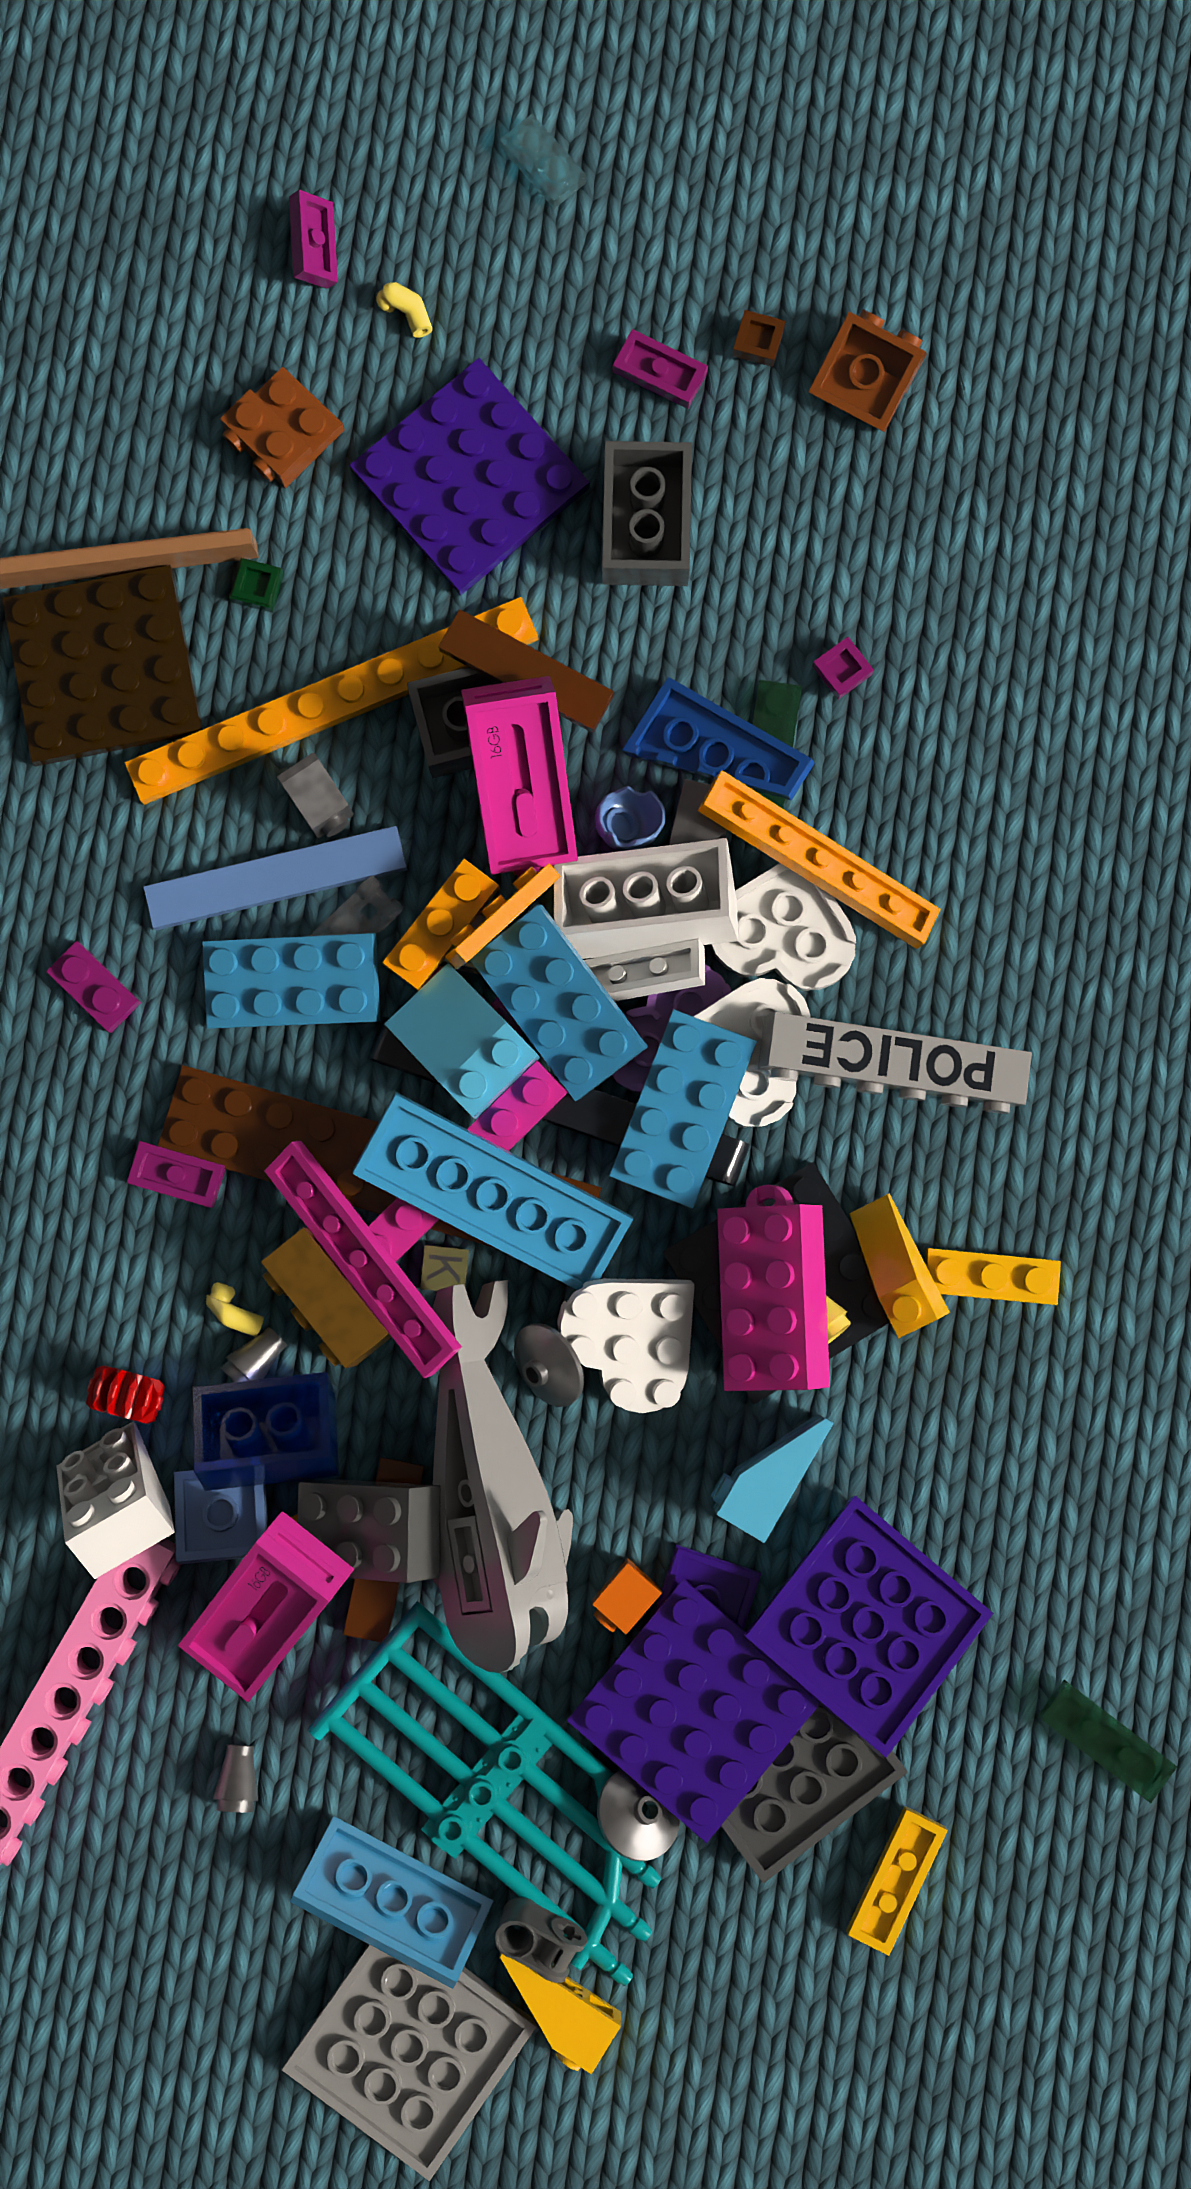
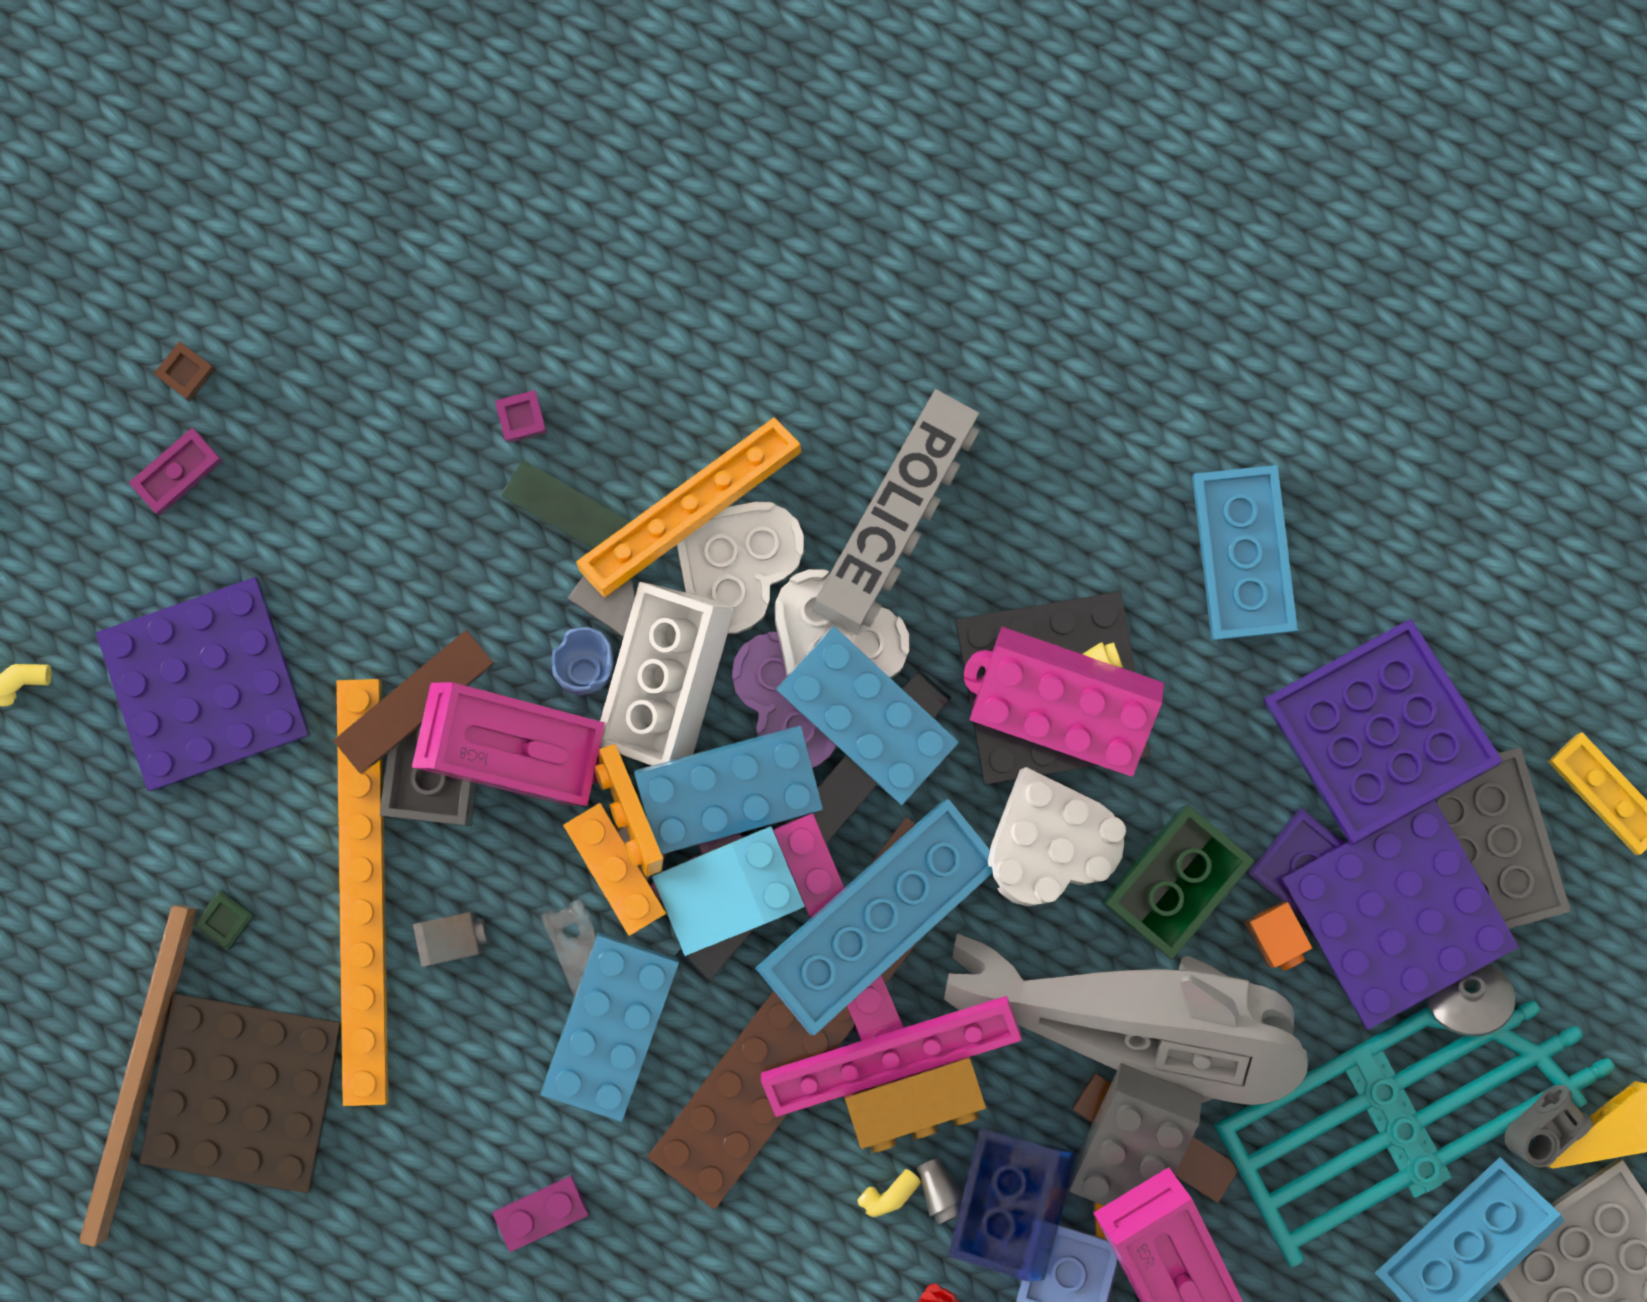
camera: 75 degrees left, 0 degrees up
(176, 1174) = (745, 1200): magenta plate -> none
(275, 878) = (506, 1007): medium blue tile -> none
(280, 427) = (84, 841): dark orange plate -> none
(443, 1267) = (924, 987): olive tile -> none
(548, 1364) = (1048, 925): flat silver dish -> none
(640, 1476) = (1177, 881): none -> dark green slope
(647, 513) = (308, 536): dark grey brick -> none
(651, 969) = (729, 696): white plate -> none
(704, 738) = (540, 562): blue wing -> none
(765, 1482) = (1223, 770): medium azure slope -> none
(868, 369) = (256, 285): dark orange plate -> none
(897, 1267) = (1079, 582): yellow slope -> none
(992, 1421) = (1244, 553): none -> dark azure plate
(994, 1276) = (1117, 503): yellow plate -> none
(1107, 1741) = (1555, 564): clear green plate -> none

